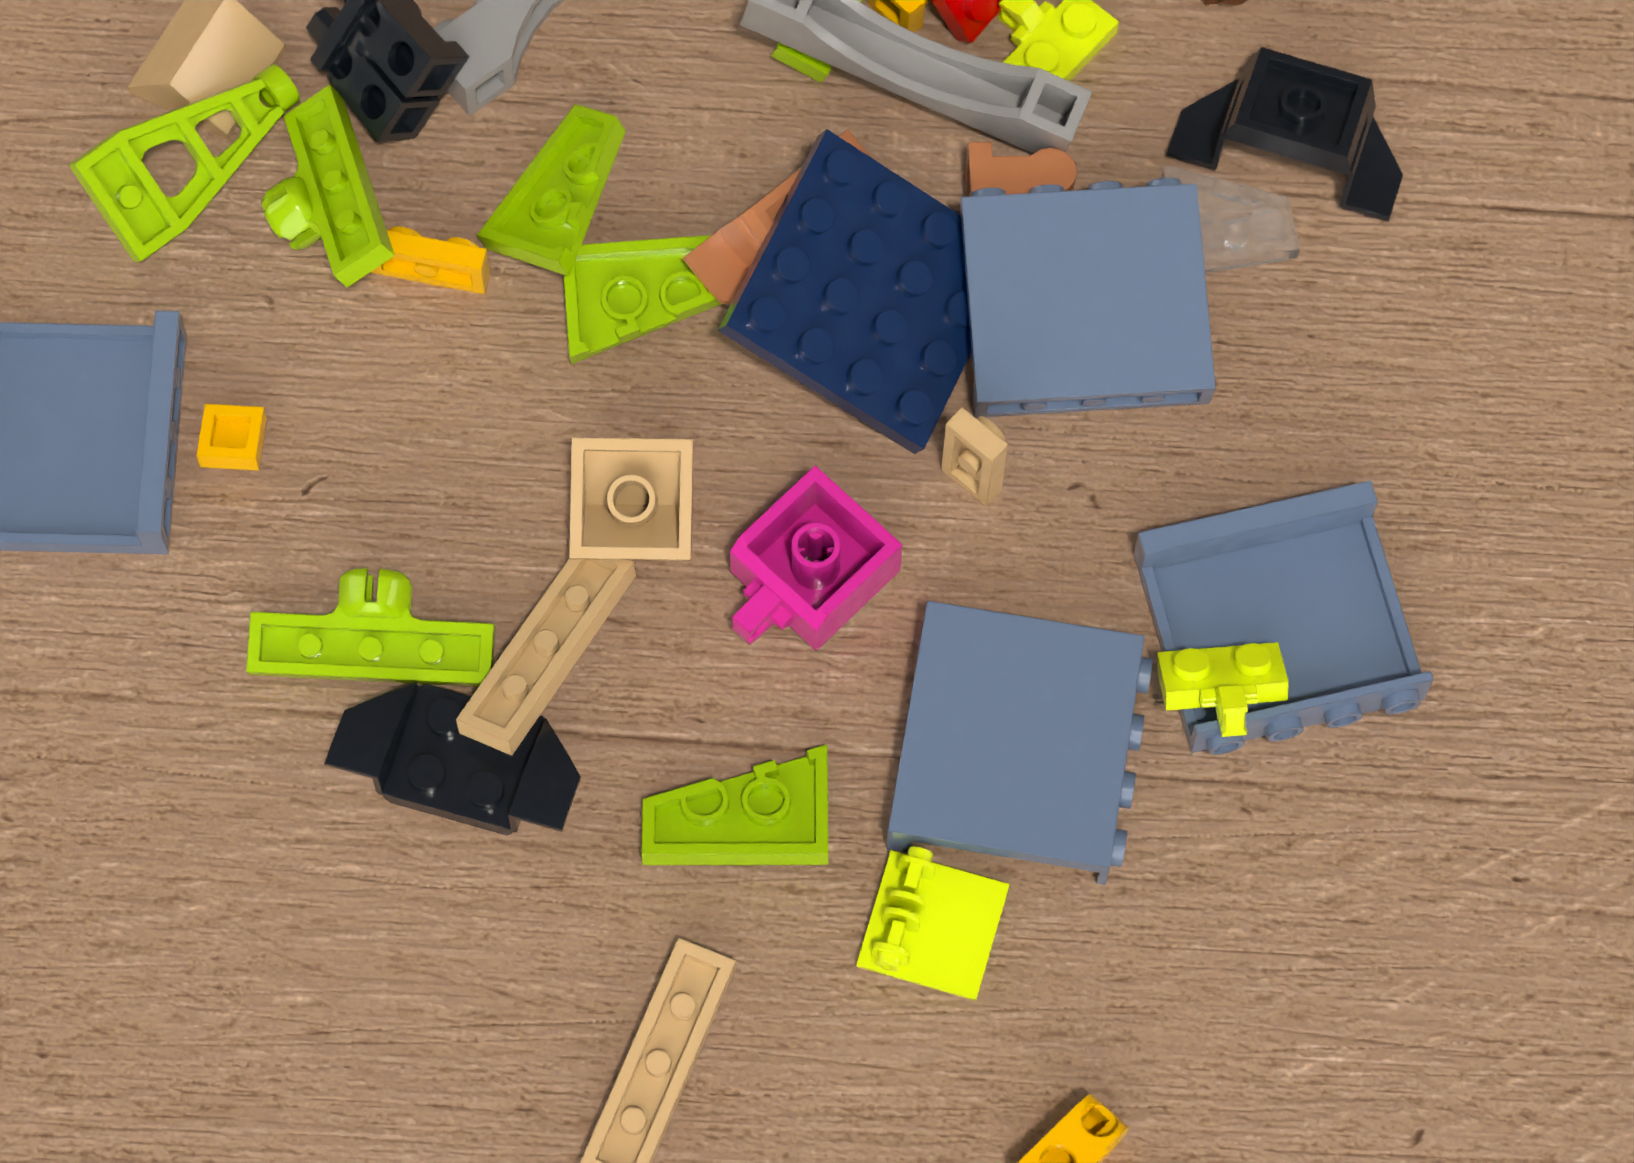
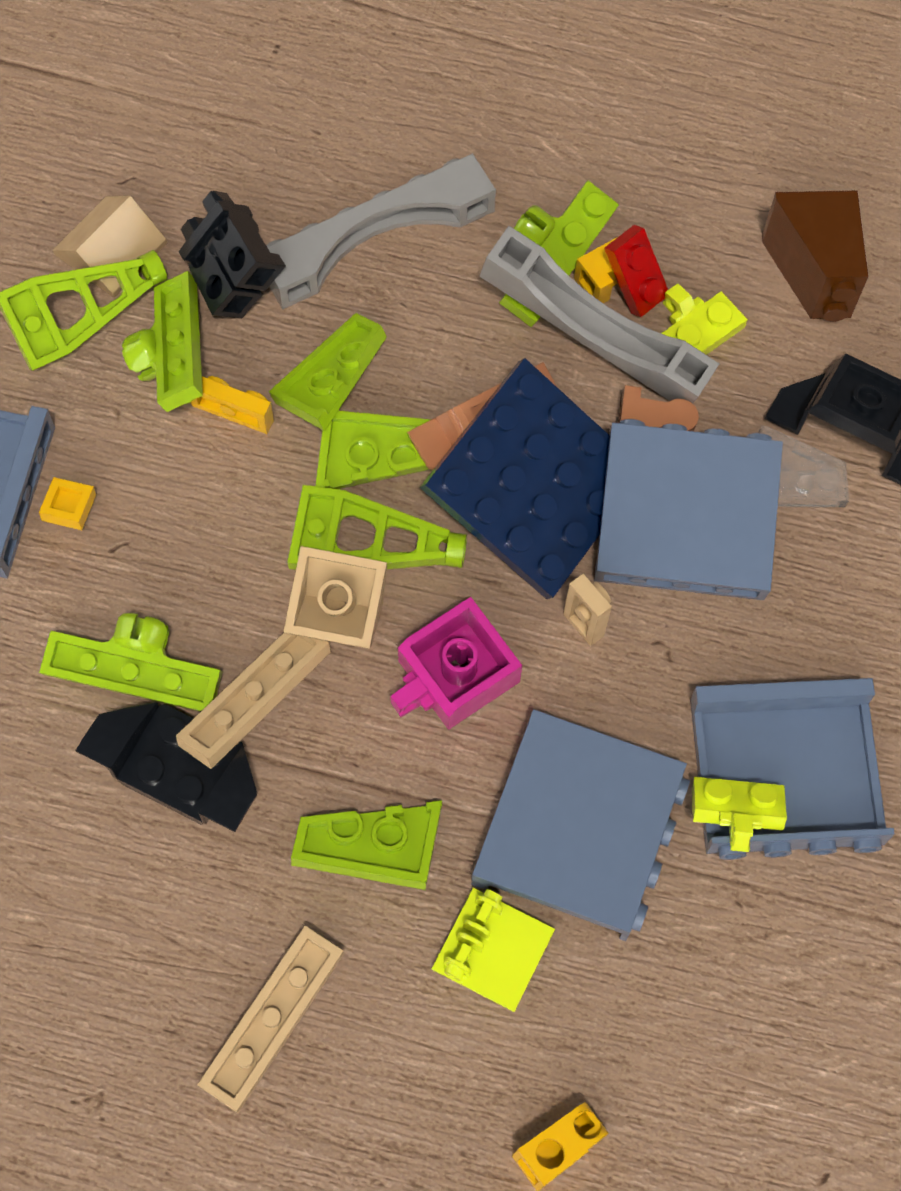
camera: 10 degrees right, 0 degrees up
(587, 386) = (324, 509): none -> lime plate

